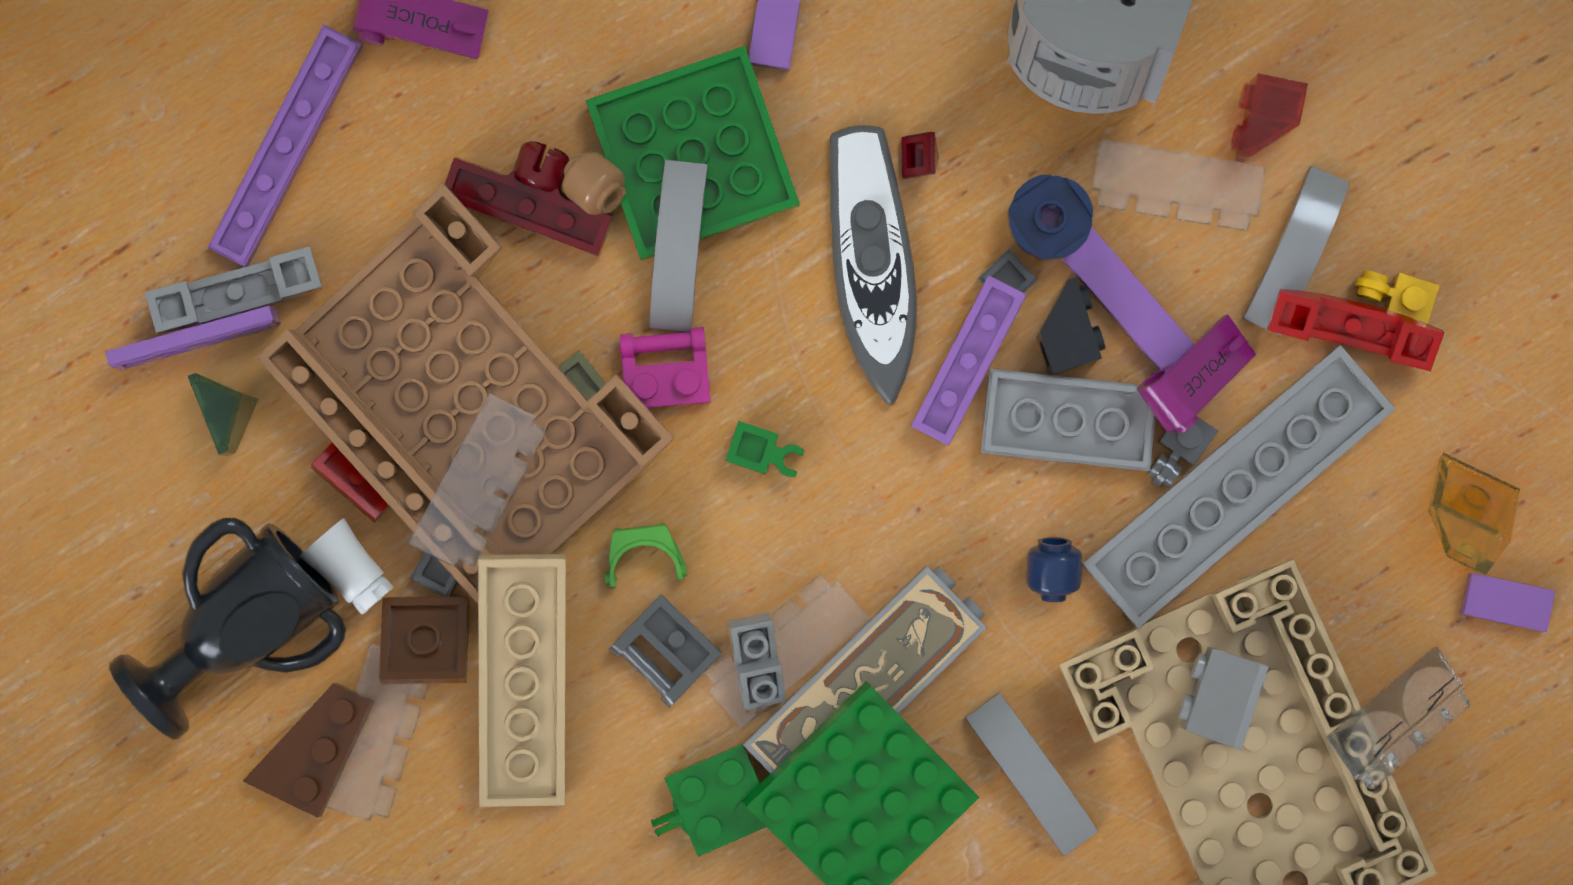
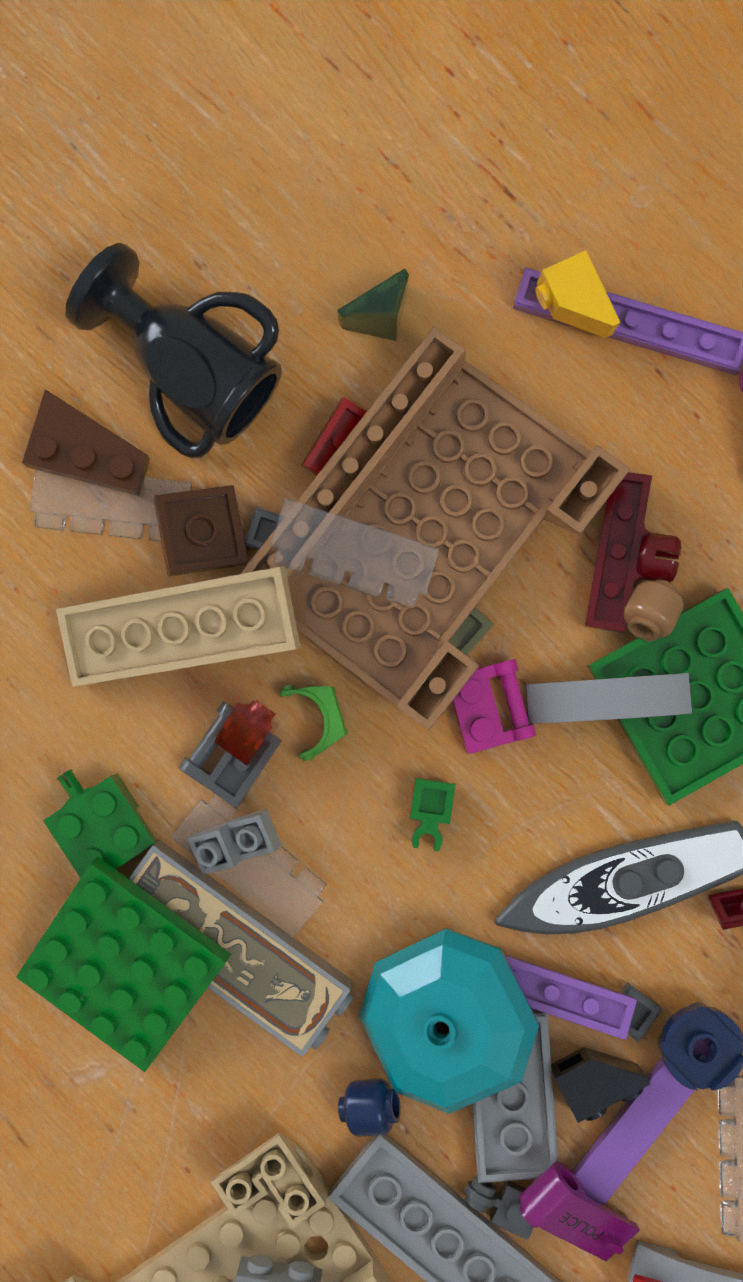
camera: 80 degrees right, 0 degrees up
(193, 338) = (440, 269): medium lavender tile -> none
(233, 291) = (488, 297): light grey slope -> none
(250, 201) = (577, 296): none -> yellow slope
(347, 566) = (255, 448): white plant -> none
(641, 624) = (247, 730): none -> clear red slope
(971, 432) = (472, 992): none -> teal rock
(1032, 774) = (176, 1116): light grey slope -> none

